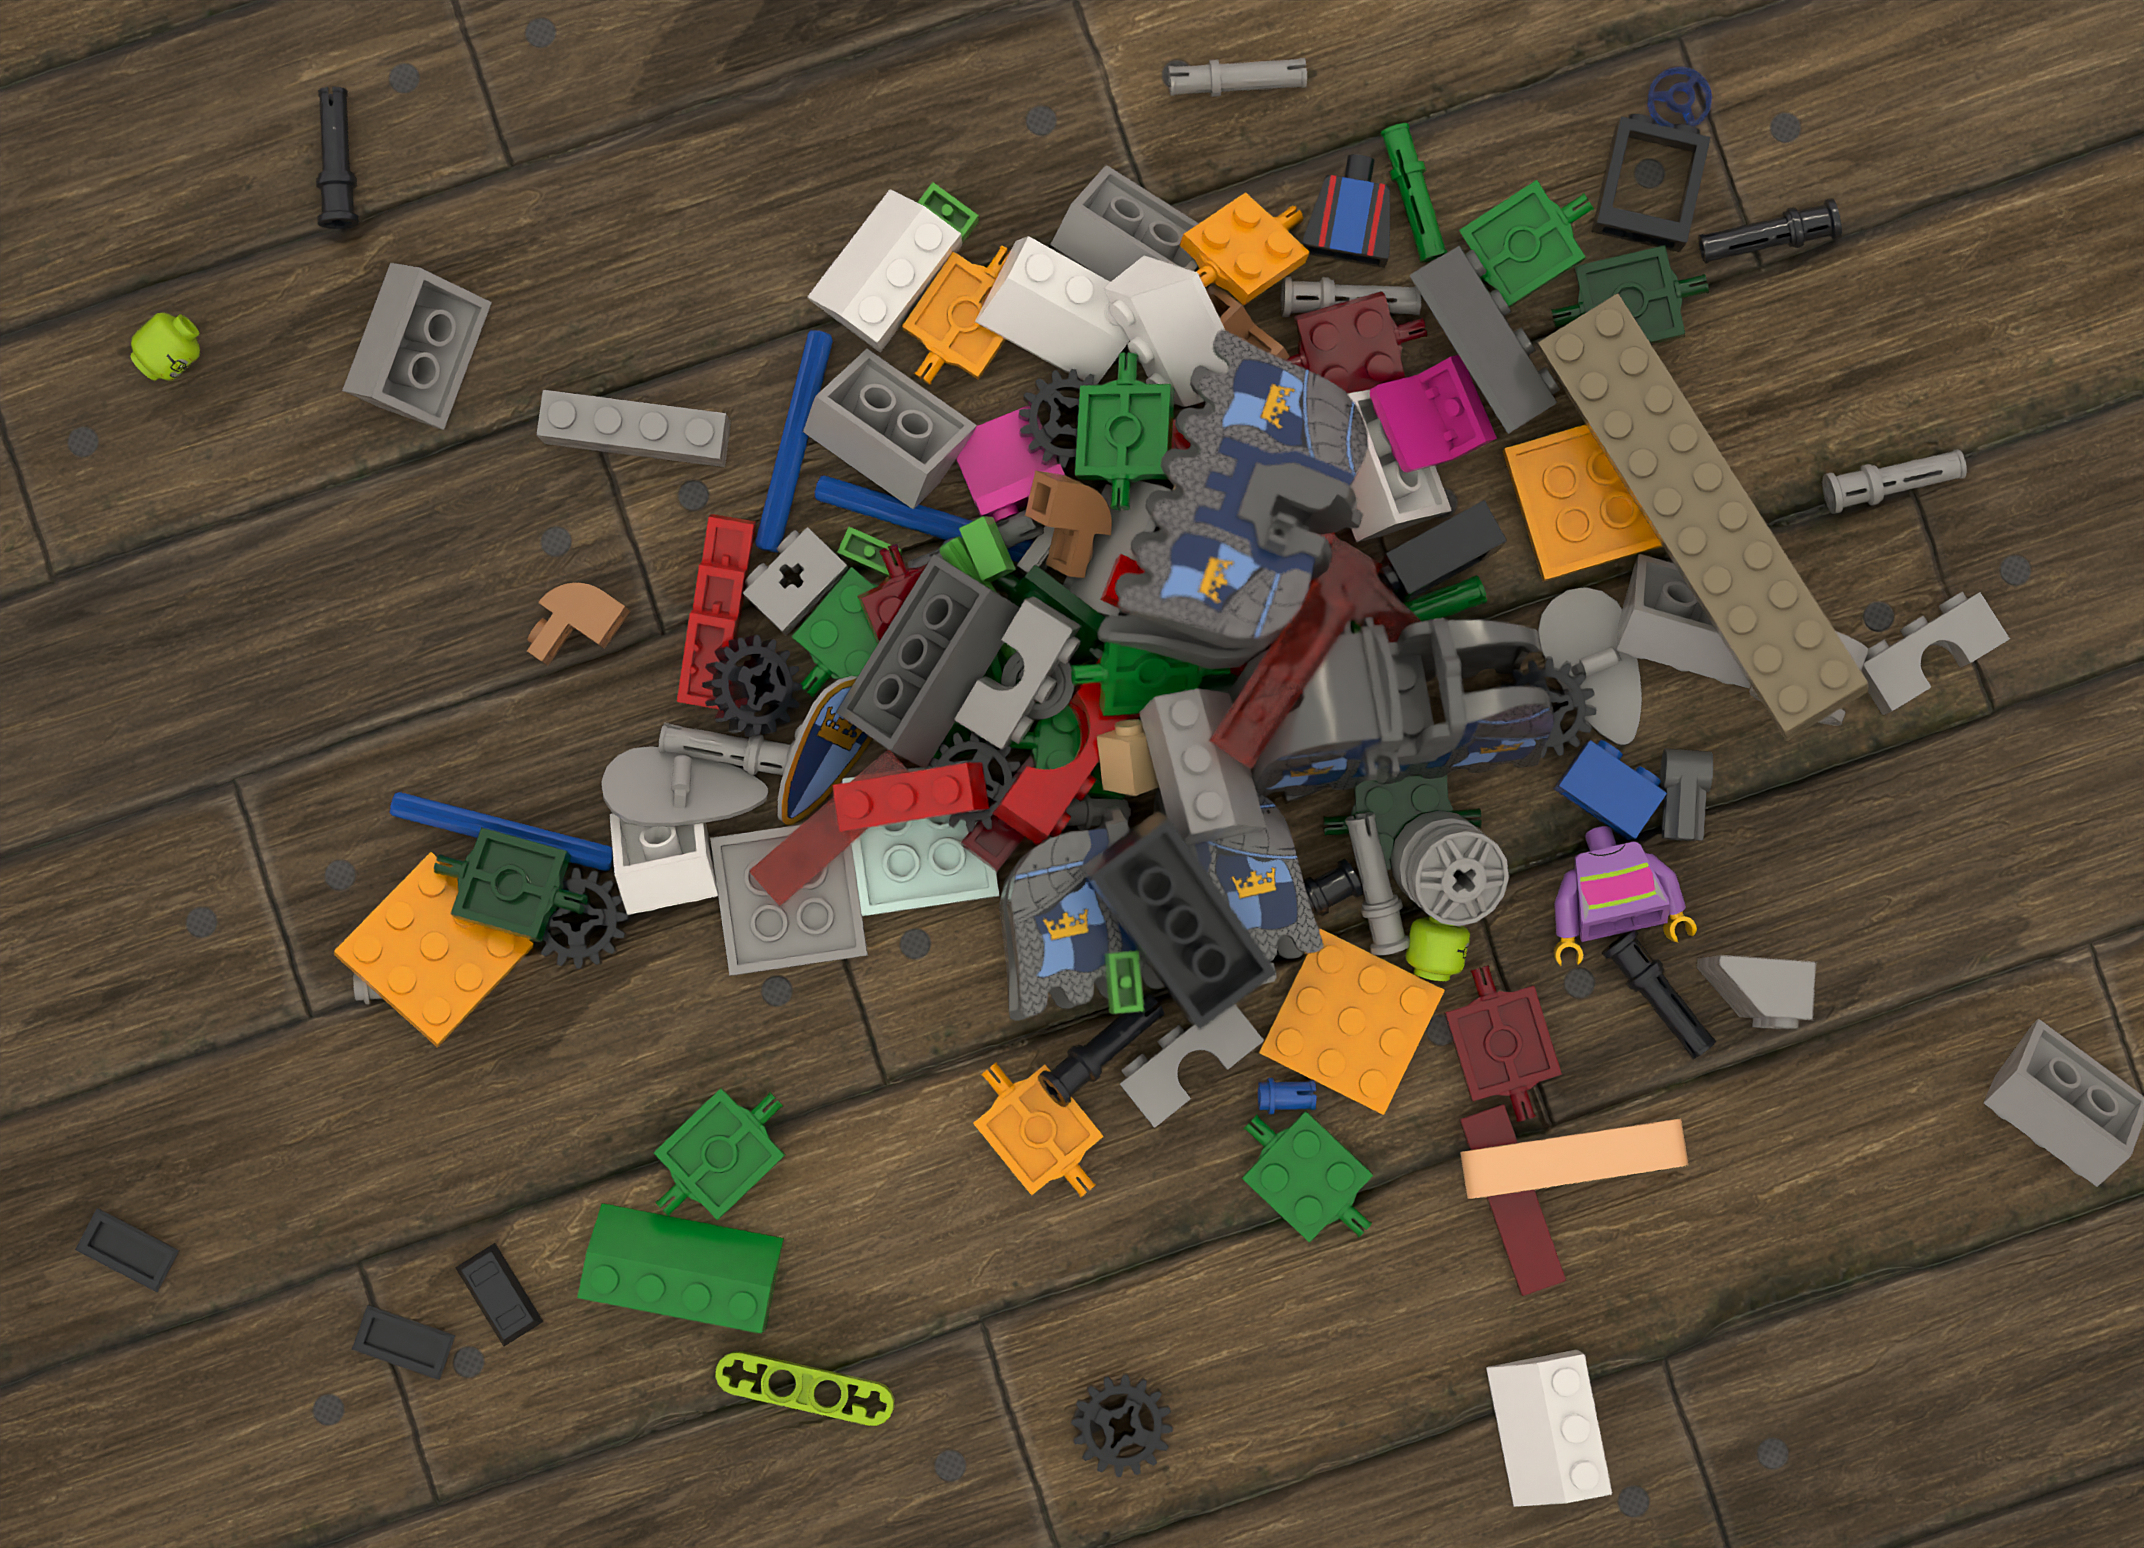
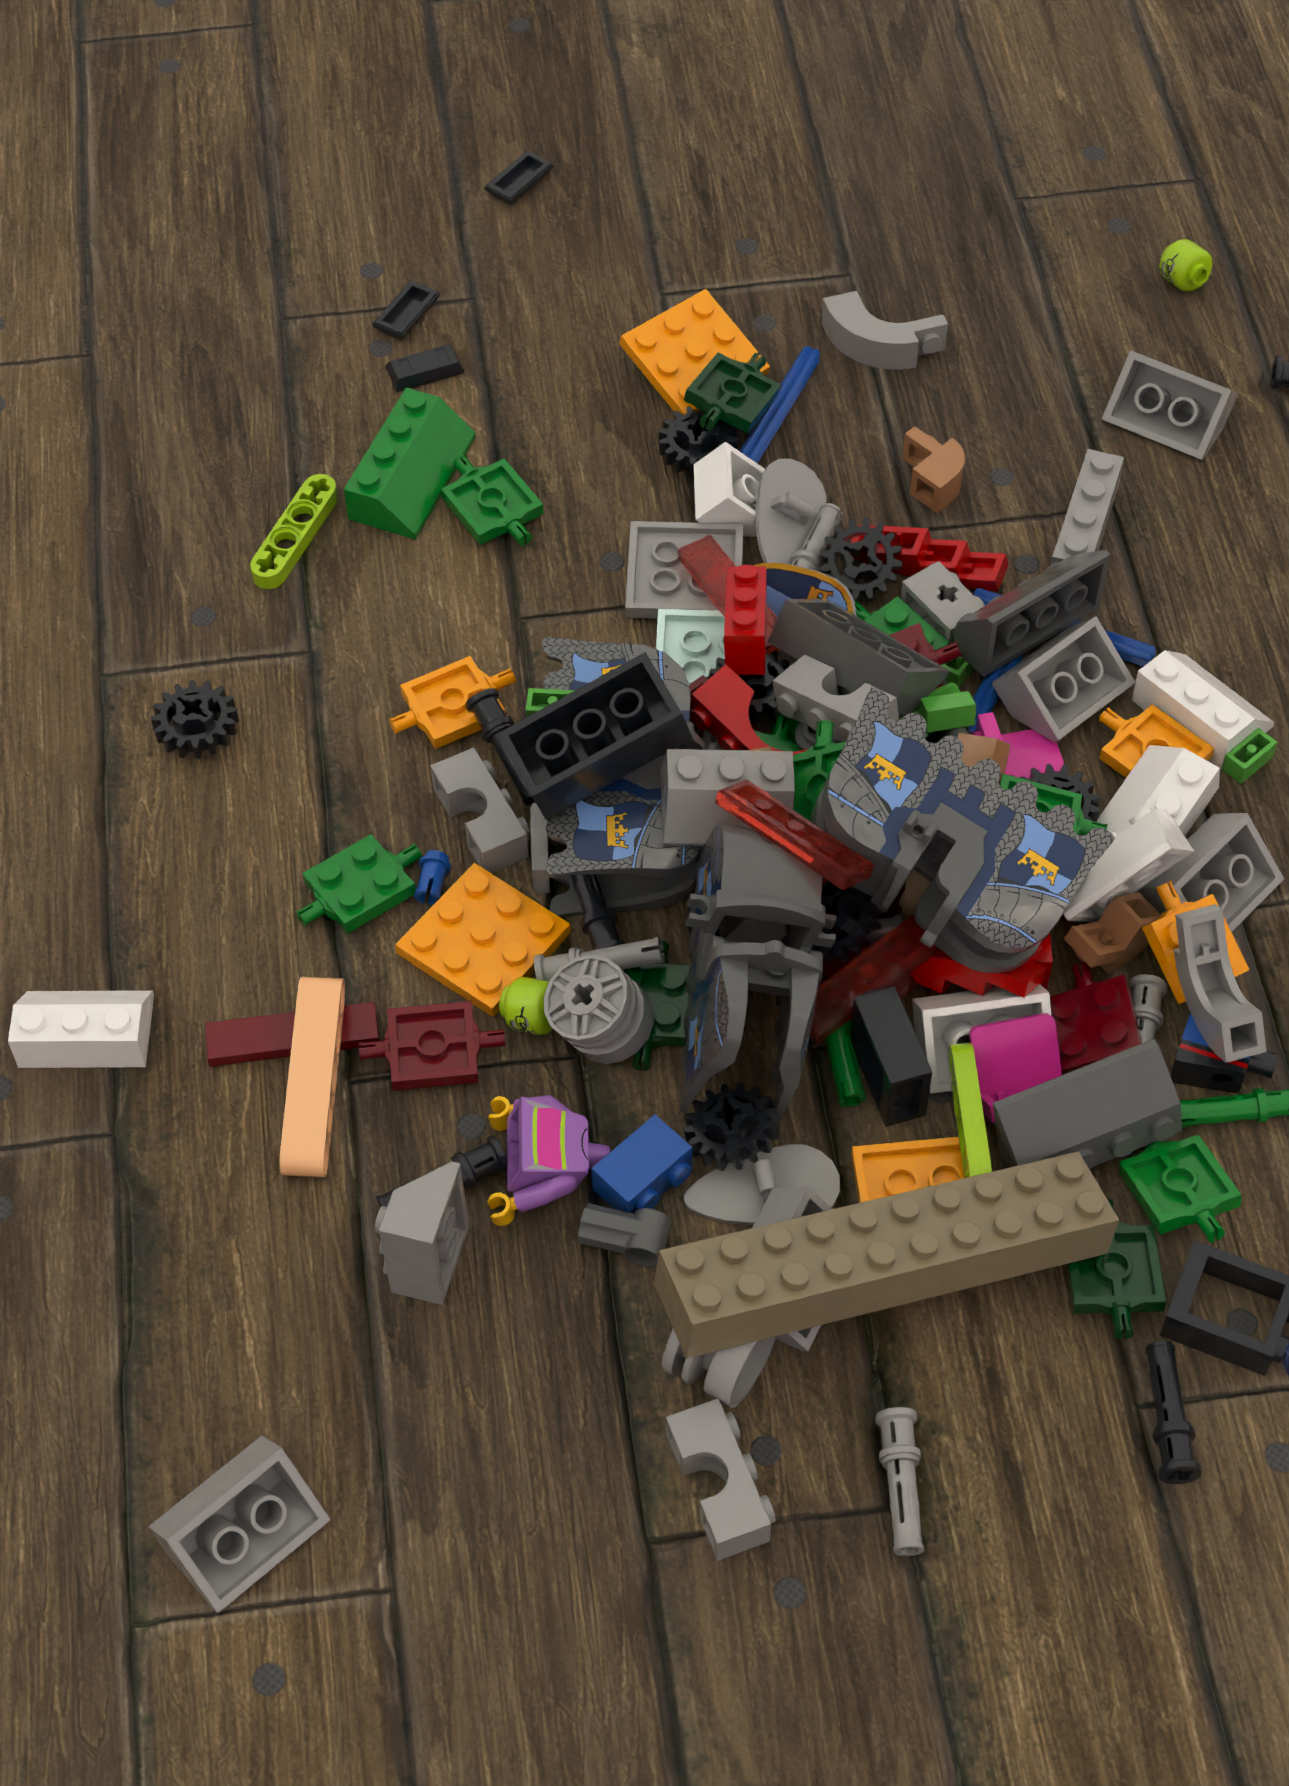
camera: 100 degrees right, 30 degrees down
(368, 730) = (877, 341): none -> light grey arch
(809, 474) = (1032, 611): none -> dark grey slope
(1324, 218) = (1215, 1001): none -> light grey arch
(1503, 460) = (968, 1110): none -> lime beam

